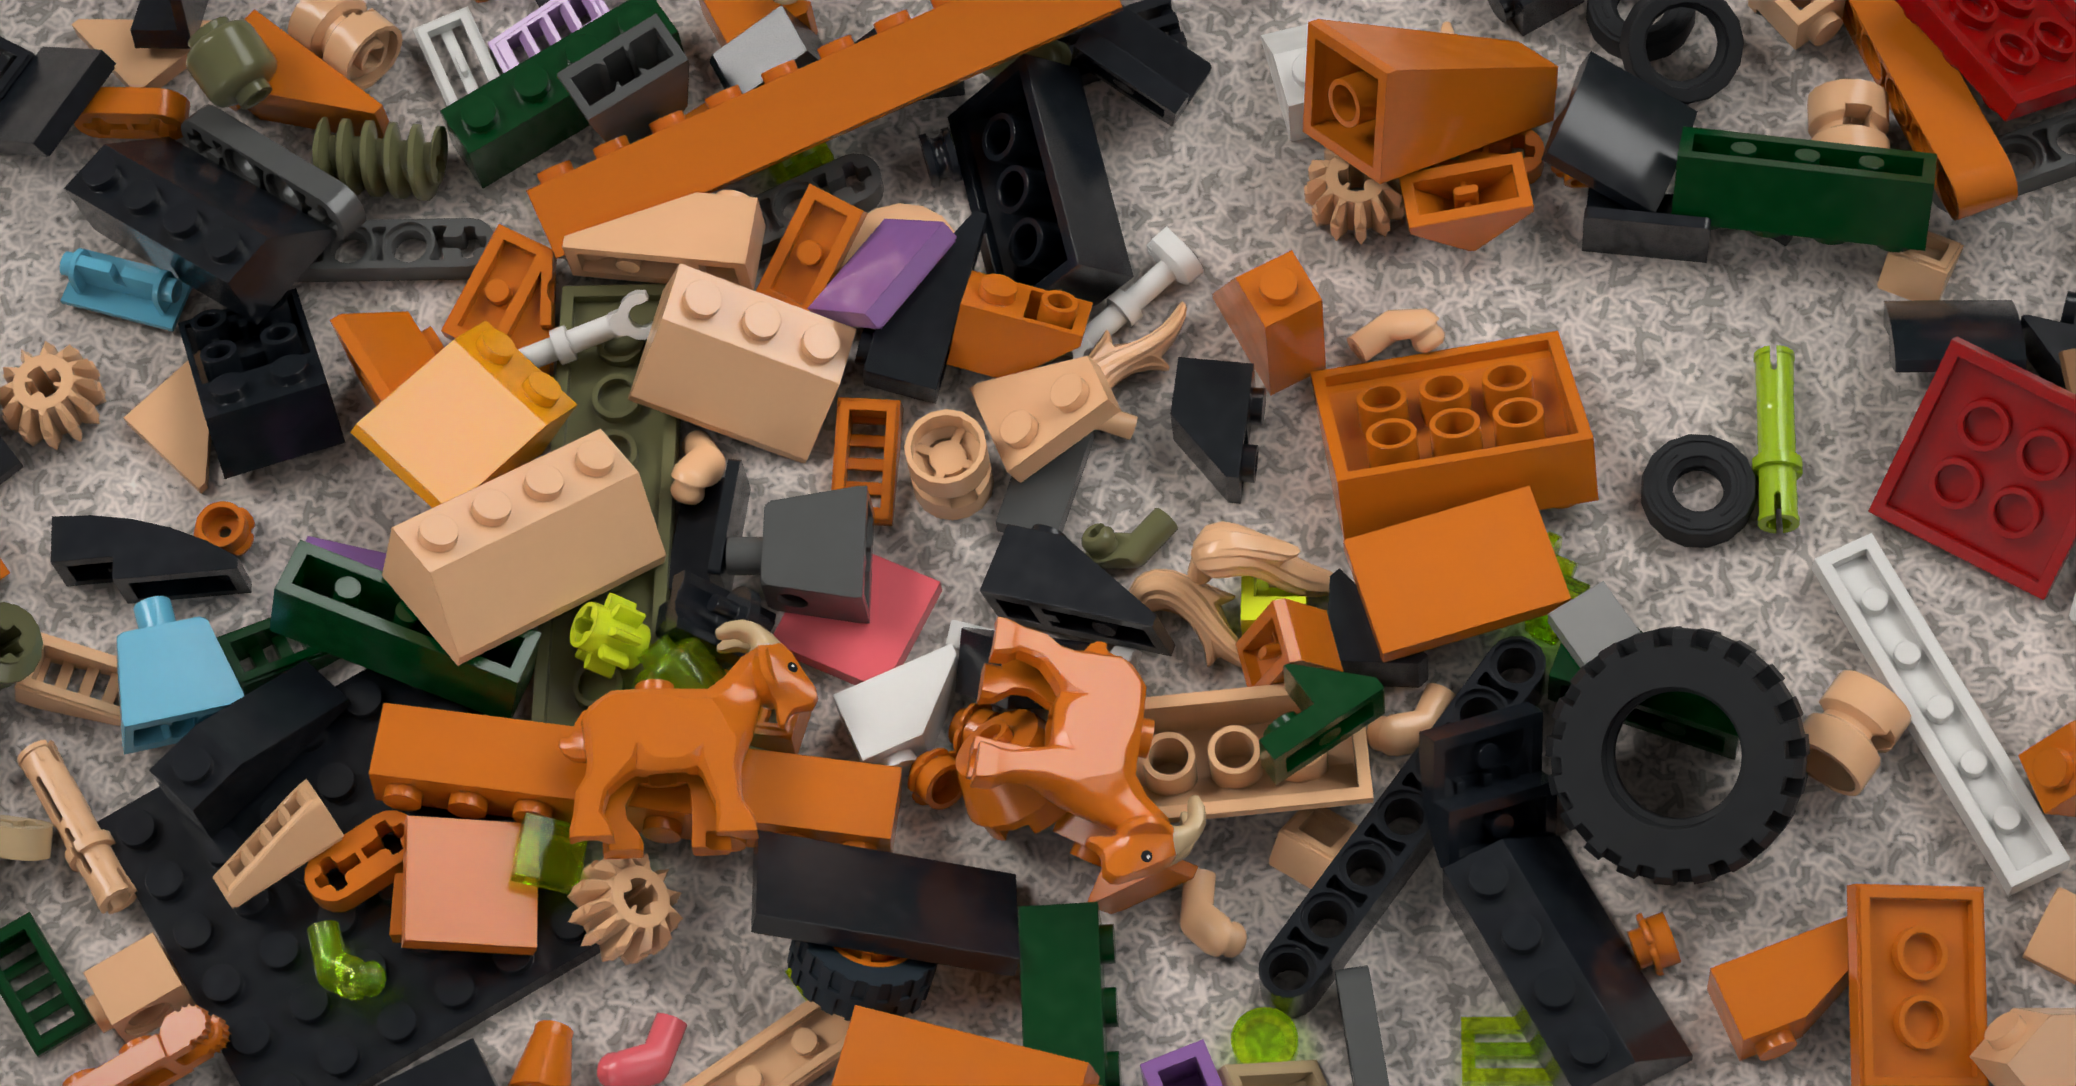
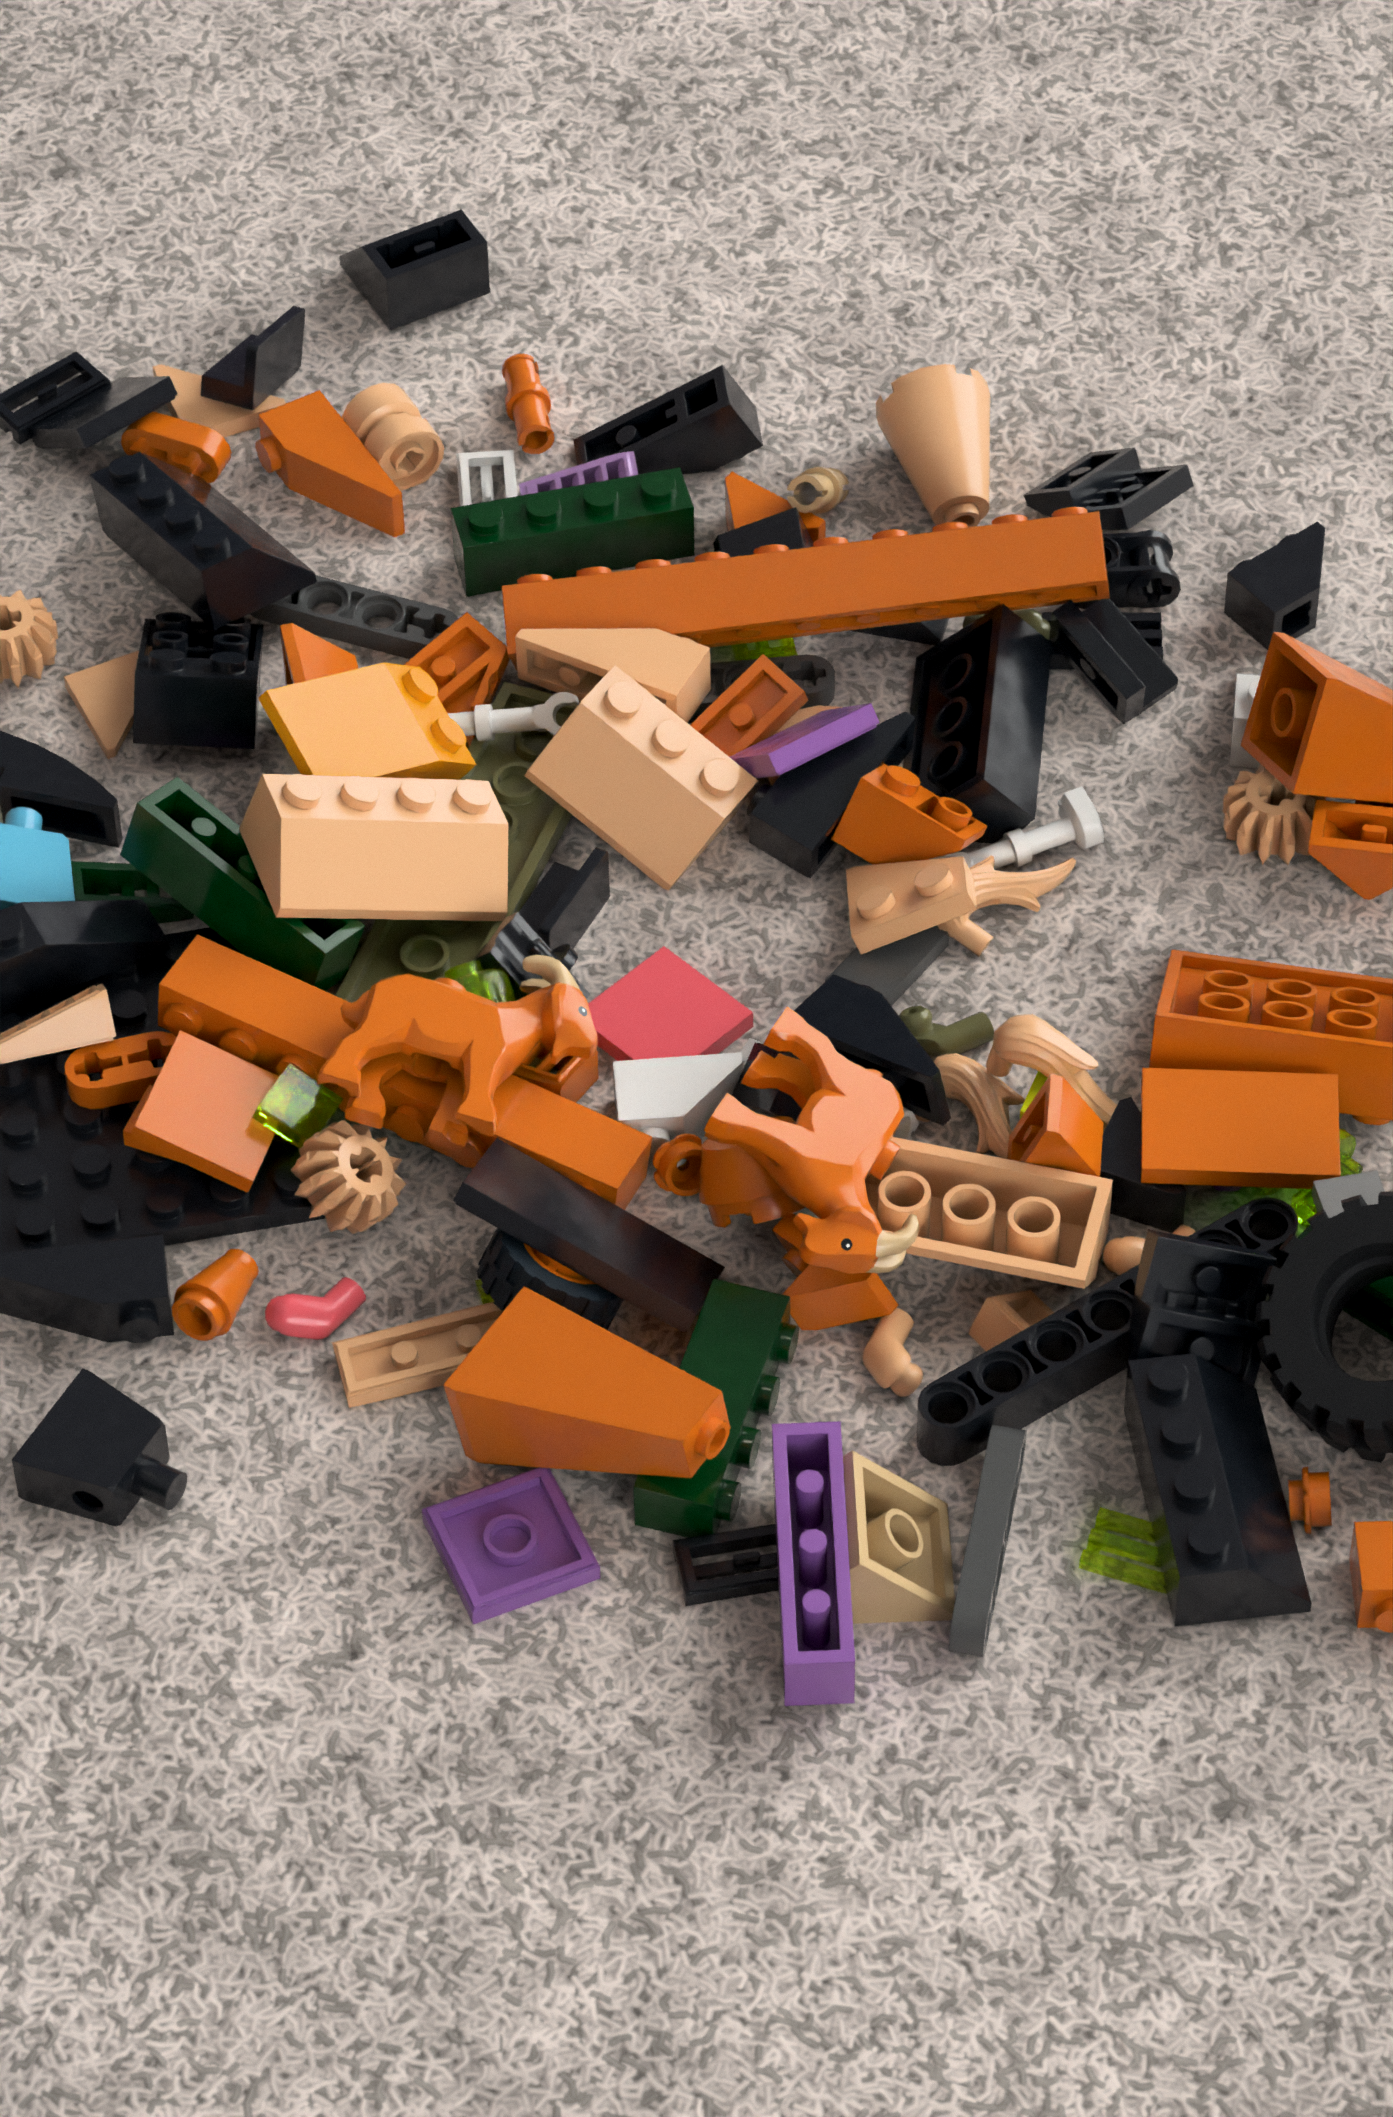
camera: 10 degrees right, 15 degrees down
(123, 288) = (108, 577): medium azure hinge -> none
(223, 516) = (121, 781): orange plate -> none
(231, 63) = (279, 415): olive head -> none
(273, 169) = (284, 517): dark grey beam -> none
(341, 971) = (67, 1148): clear neon green arm -> none
(382, 162) = (379, 543): olive piece -> none
(609, 635) = (427, 947): neon yellow gear -> none
(630, 81) = (632, 521): dark grey torso -> none
(698, 469) = (562, 854): light nougat arm -> none
(813, 554) = (643, 948): dark grey torso -> none
(869, 412) = (739, 859): orange slope -> none
(940, 157) = (895, 681): black bush -> none
(949, 464) = (800, 917): light nougat wheel -> none
(1213, 420) = (1065, 954): black slope -> none
(1264, 1037) = (909, 1461): clear neon green tile -> none
(1276, 321) = (1153, 882): orange slope -> none
(1332, 710) = (1066, 1192): dark green slope -> none
(1397, 325) = (1264, 934): light nougat arm -> none

